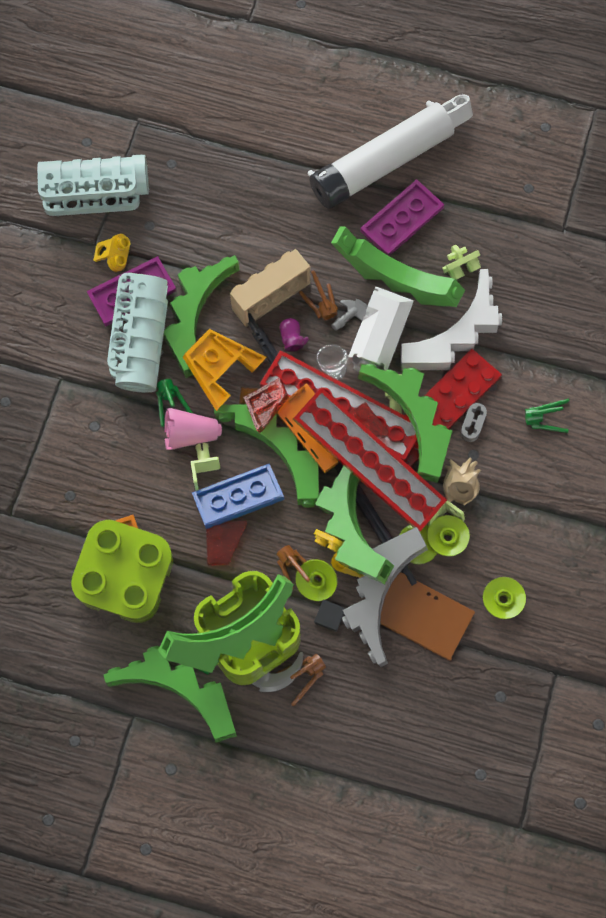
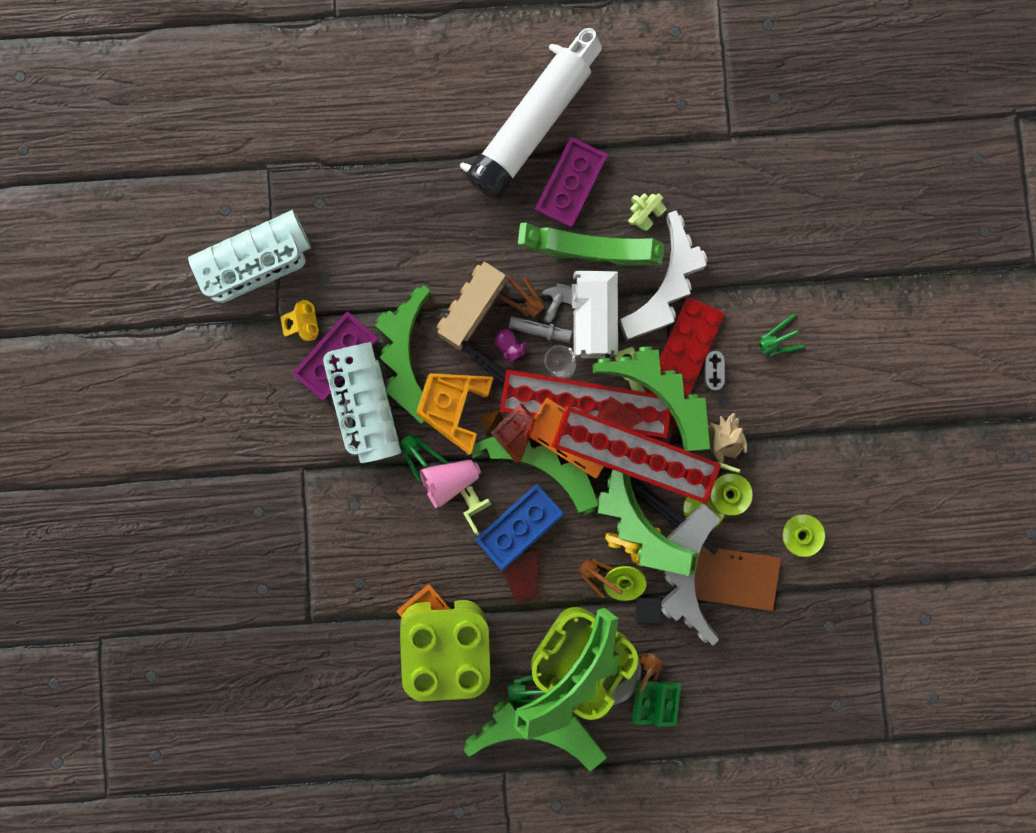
camera: 25 degrees left, 15 degrees up
(304, 704) = (656, 703): none -> green slope
(333, 336) = (543, 330): none -> light grey pin

